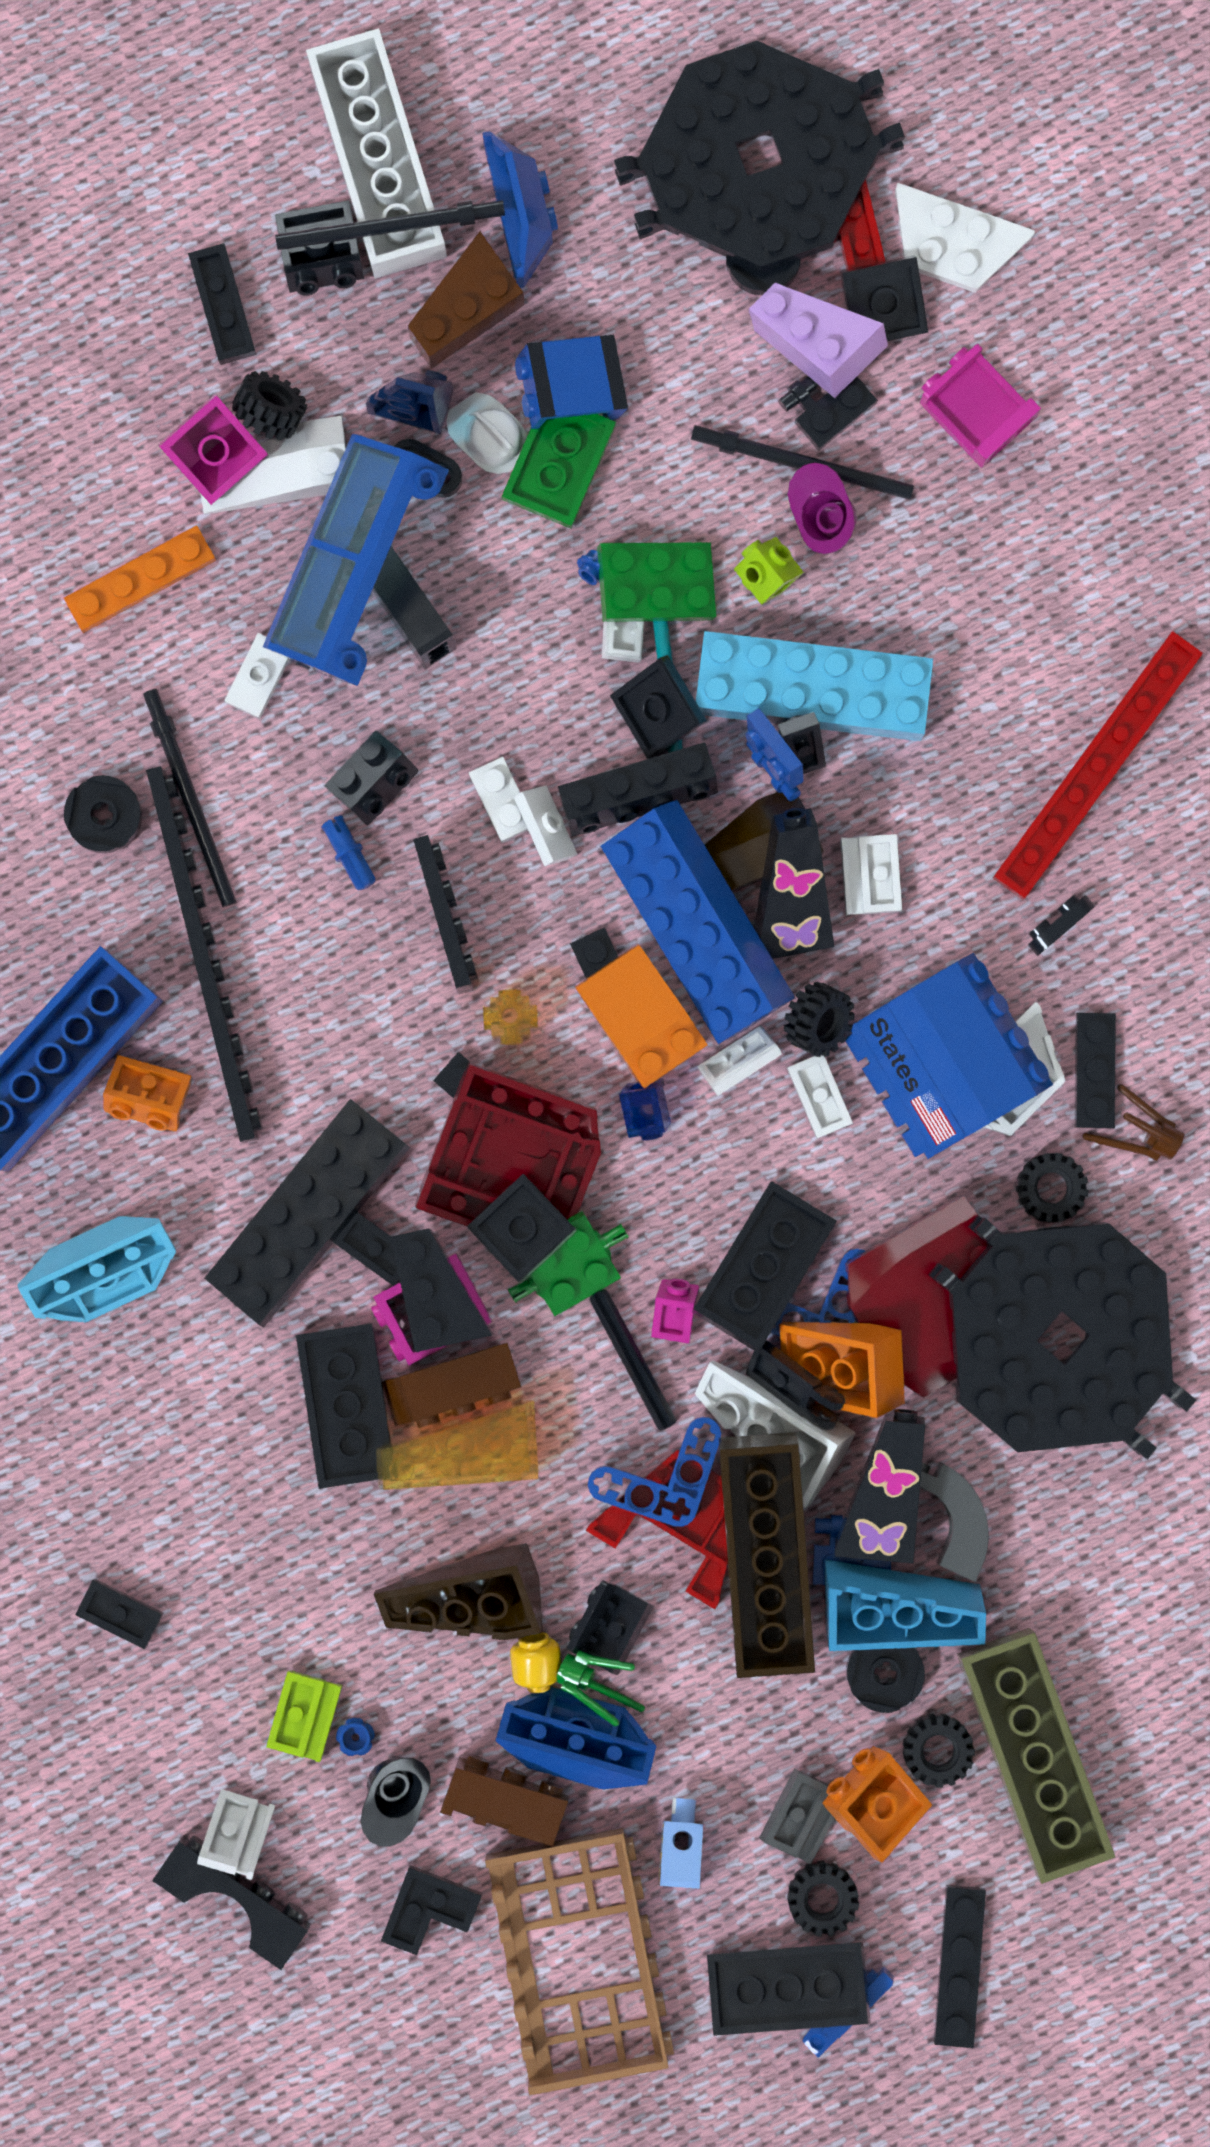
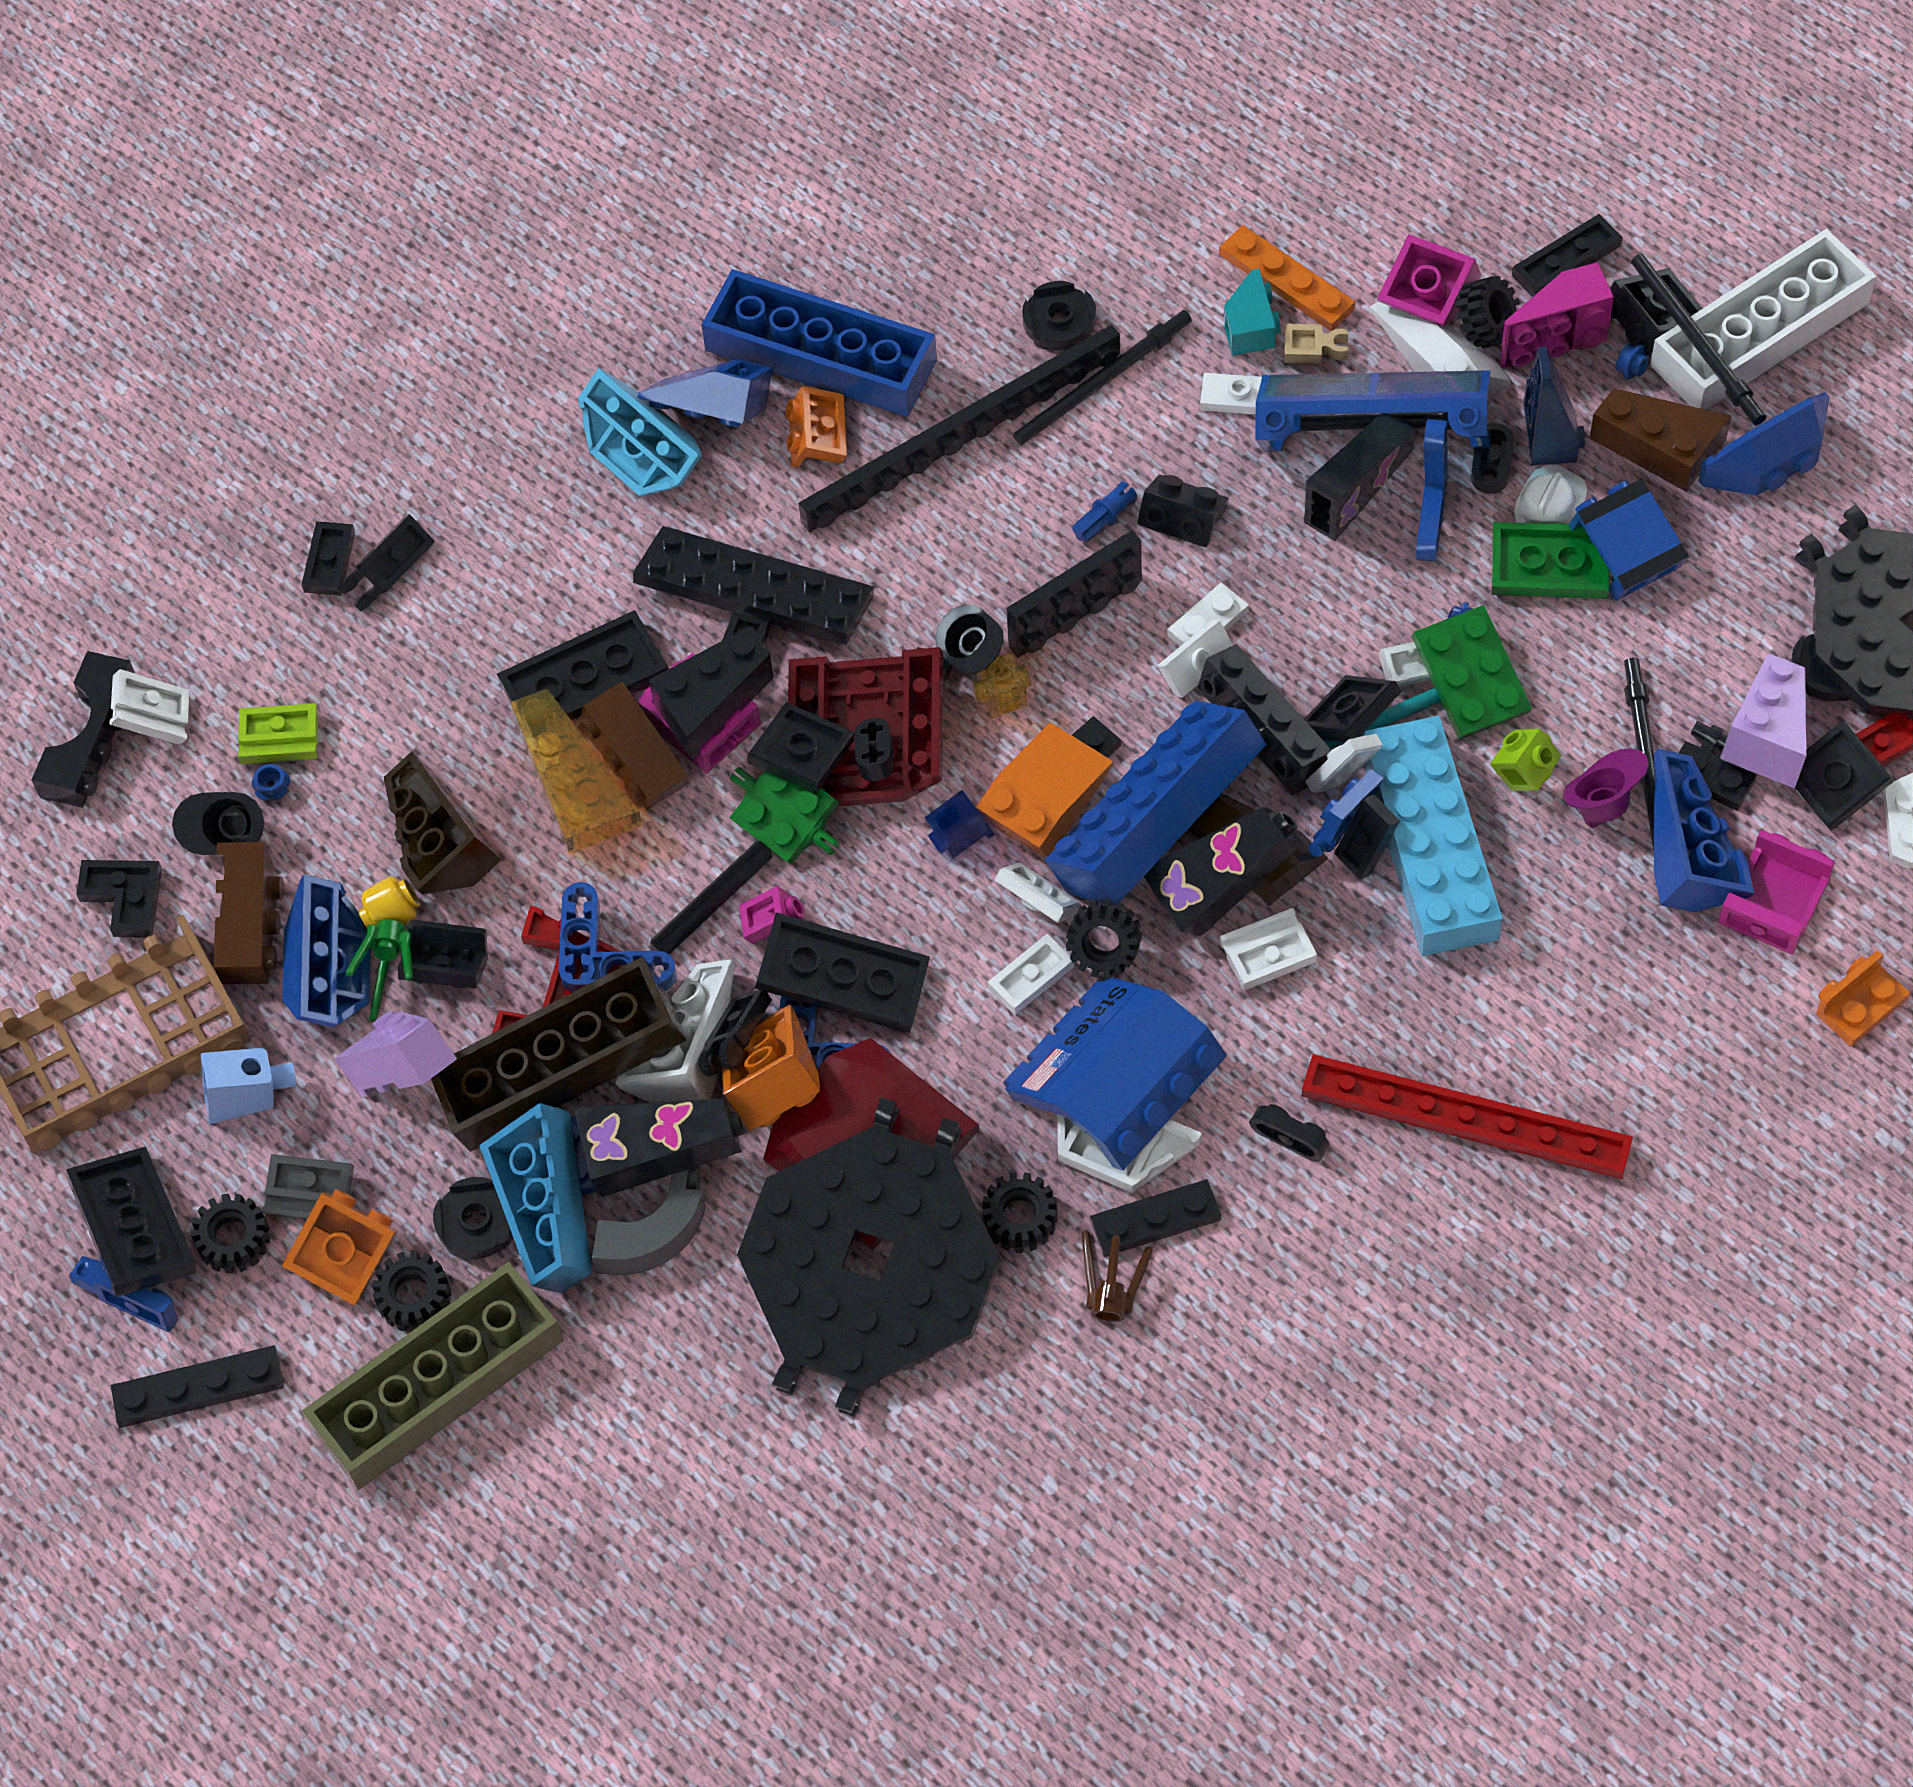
camera: 75 degrees right, 25 degrees down
(73, 1185) = (728, 391): none -> slope
(148, 1558) = (389, 560): none -> black hinge
(180, 633) = (1249, 318): none -> teal slope
(228, 588) = (1307, 343): none -> tan plate
(300, 320) = (1561, 316): none -> dark pink slope
(368, 293) = (1632, 361): none -> blue plate
(437, 529) = (1434, 491): none -> blue beam
(458, 1031) = (969, 639): none -> black piece
(548, 1152) = (867, 750): none -> black beam
(714, 1698) = (398, 1051): none -> lavender wedge
(720, 735) = (1344, 763): none -> white plate
(913, 460) = (1691, 848): none -> blue wedge
(1107, 378) = (1860, 999): none -> orange bracket

